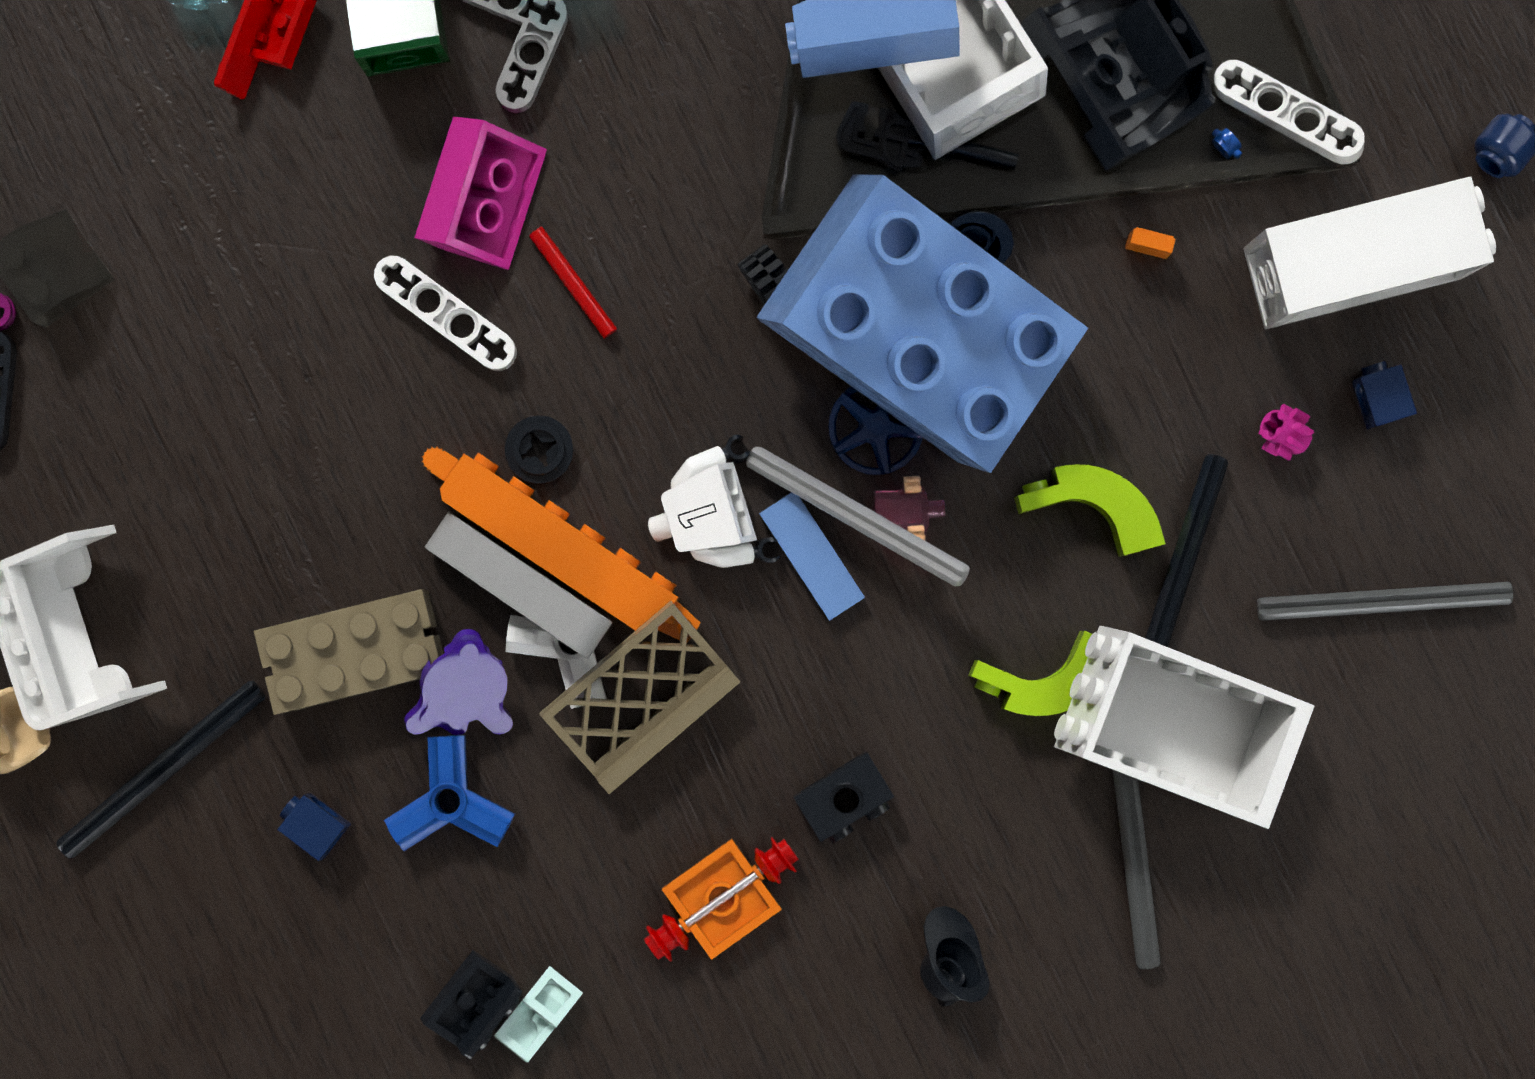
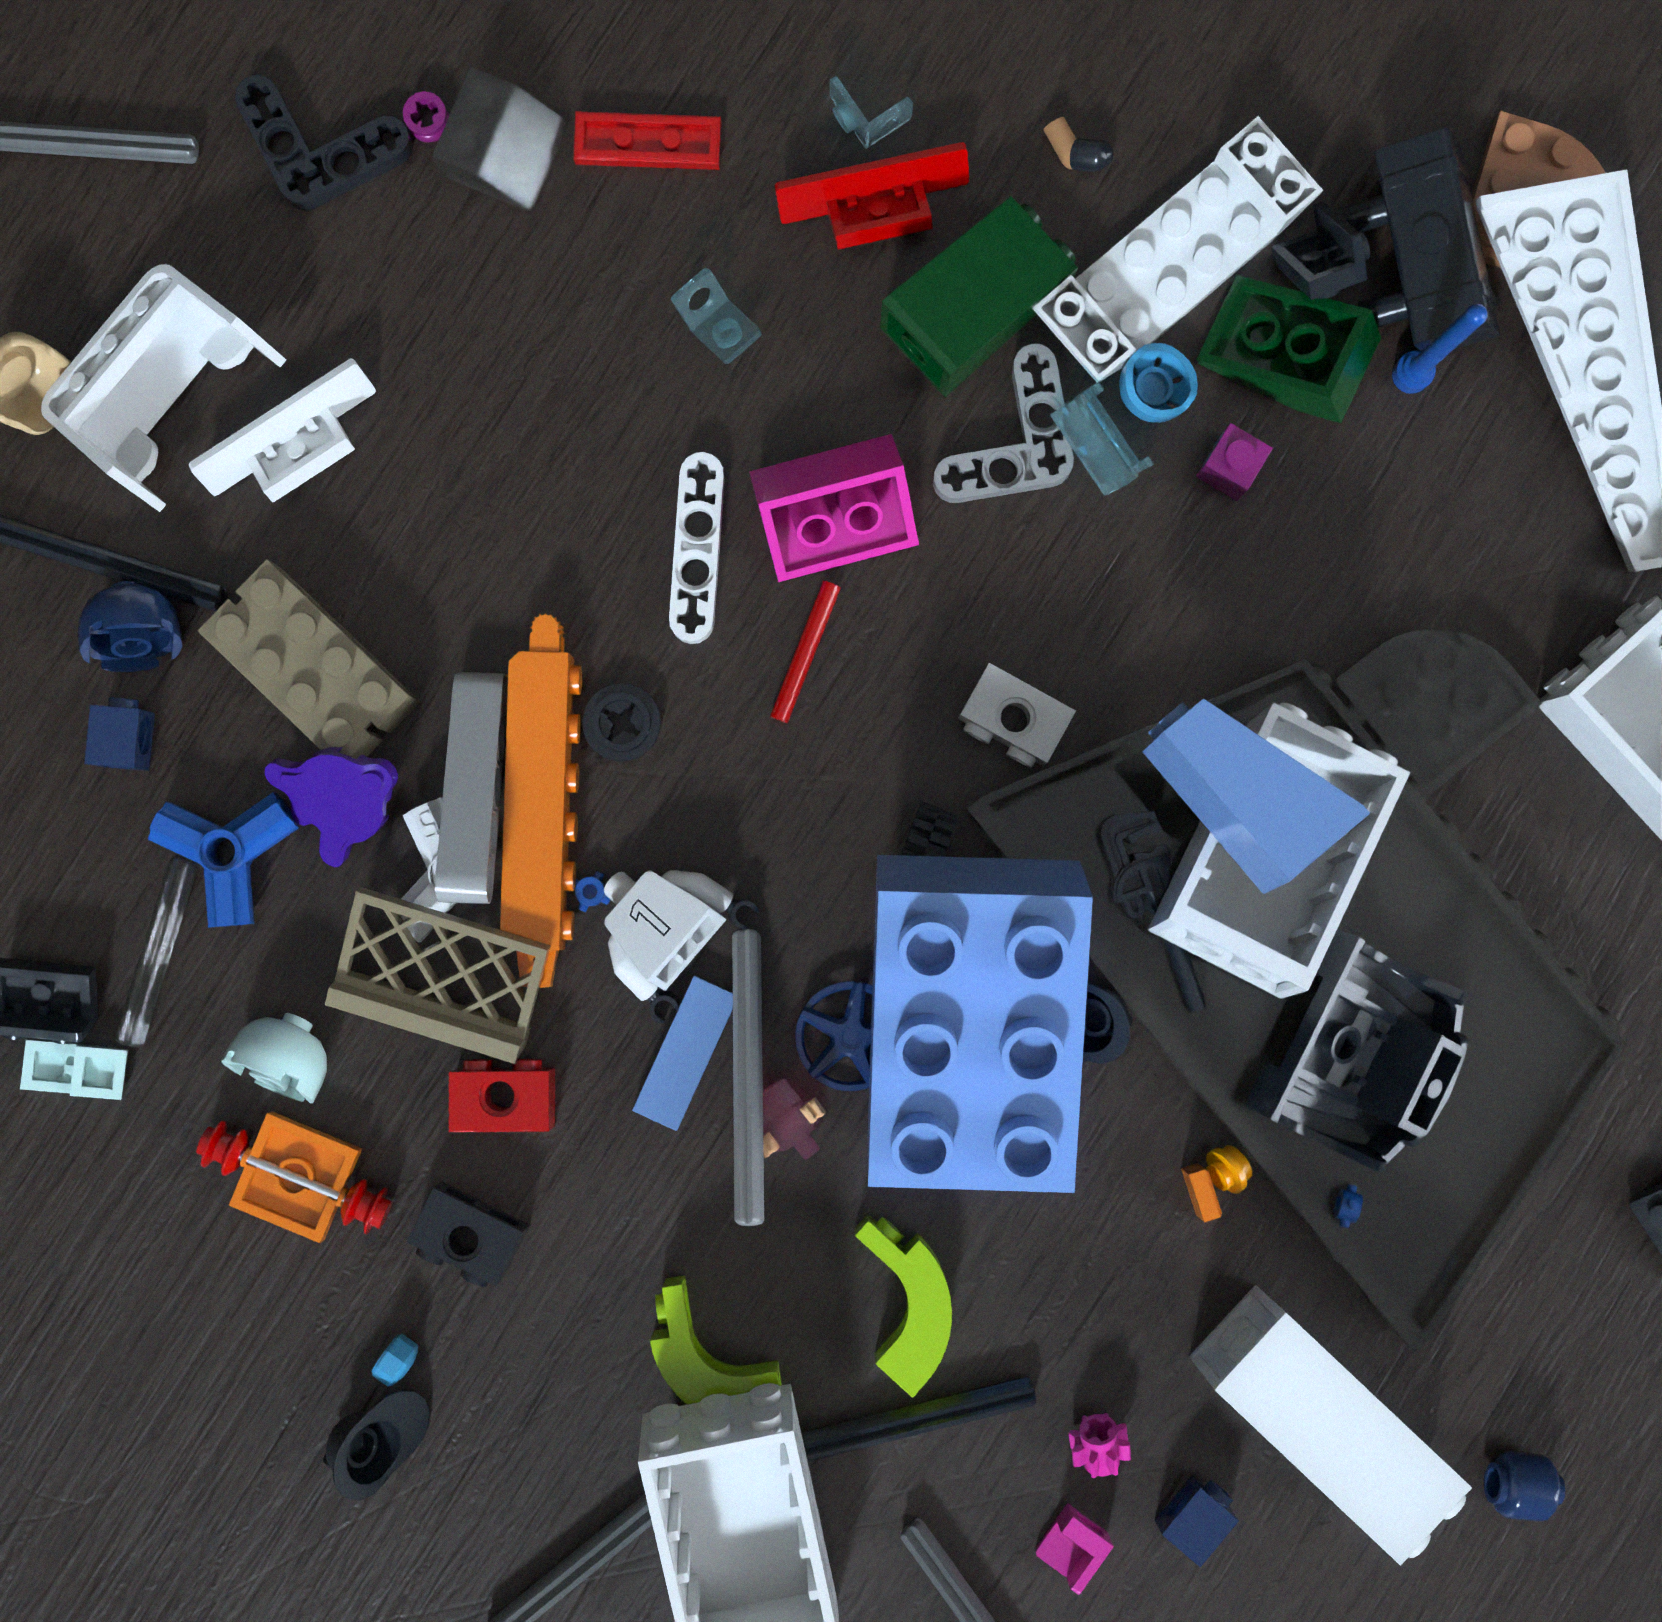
camera: 60 degrees right, 0 degrees up
(117, 159) = (647, 140): none -> red tile
(173, 561) = (290, 439): none -> white bracket
(237, 767) = (128, 628): none -> dark blue cylinder
(287, 191) = (718, 321): none -> clear light blue bracket
(490, 899) = (156, 952): none -> clear smoke axle
(626, 852) = (280, 1056): none -> light aqua cylinder
(649, 550) = (590, 891): none -> blue piece
(731, 136) = (1045, 716): none -> white brick
(757, 735) = (475, 1111): none -> red brick
(903, 908) = (395, 1360): none -> dark azure tile
(1146, 212) = (1228, 1169): none -> light orange plate
(1292, 106) = (1427, 1250): white beam -> none
(1348, 499) = (1074, 1547): none -> dark pink panel

